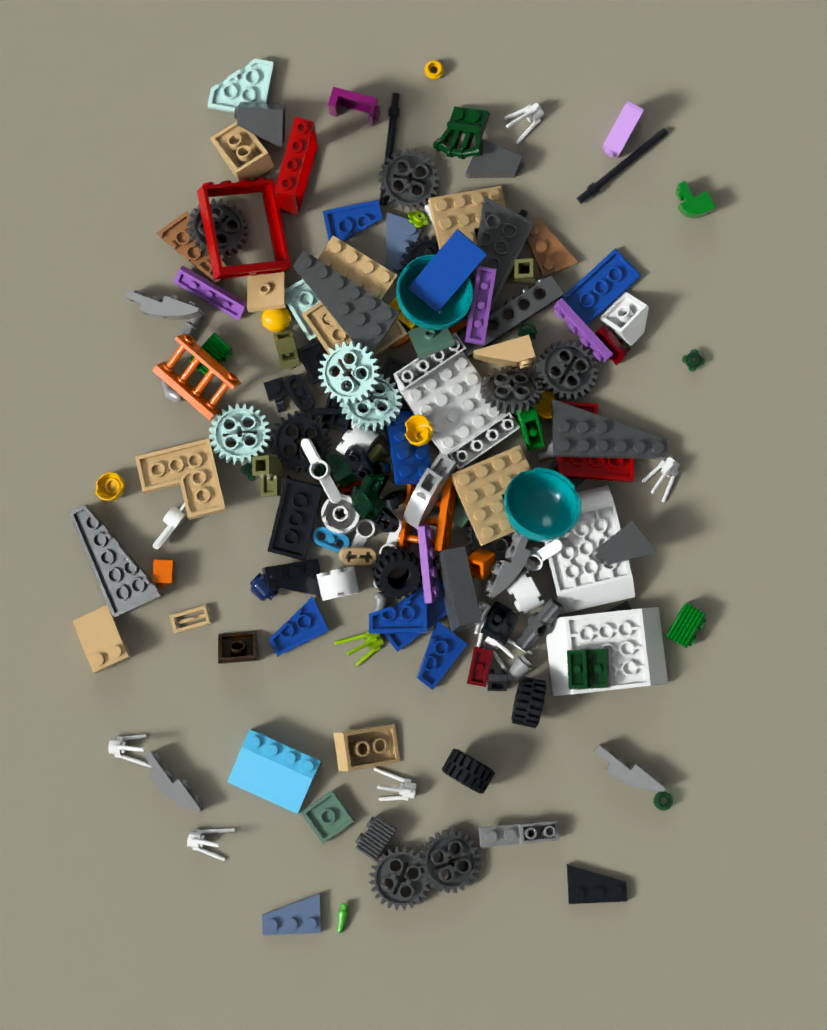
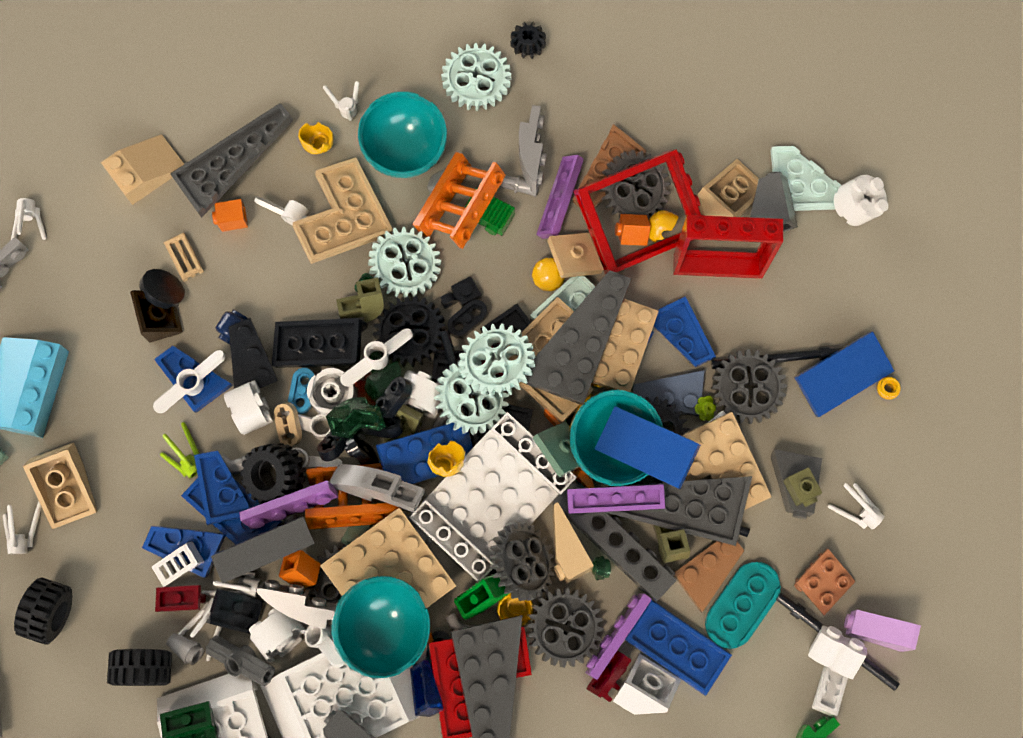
camera: 75 degrees right, 10 degrees down
(53, 289) = (528, 40): none -> black gear
(85, 455) = (347, 105): none -> white plant
(99, 346) = (481, 60): none -> light aqua gear
(130, 410) = (402, 134): none -> teal piece
(218, 639) = (162, 288): none -> black tile
(255, 215) = (660, 222): none -> yellow hair
(255, 239) = (633, 229): none -> orange brick
(273, 46) = (861, 200): none -> white brick
(287, 350) = (515, 291): olive brick -> none
(312, 638) = (177, 391): none -> white piece
(354, 101) = (822, 283): magenta panel -> none
(415, 101) = (844, 374): none -> blue tile
(447, 648) = (193, 556): none -> white slope
(467, 122) = (836, 435): dark green plate -> none
(497, 682) = (163, 625): black tile -> none
(502, 159) = (803, 488): none -> olive brick
(575, 162) = (825, 581): none -> nougat hinge
(579, 230) = (742, 605): none -> teal tile
(602, 482) = (425, 691): none -> clear blue slope
(631, 167) = (837, 651): none -> white brick
(657, 180) = (829, 692): none -> white plate

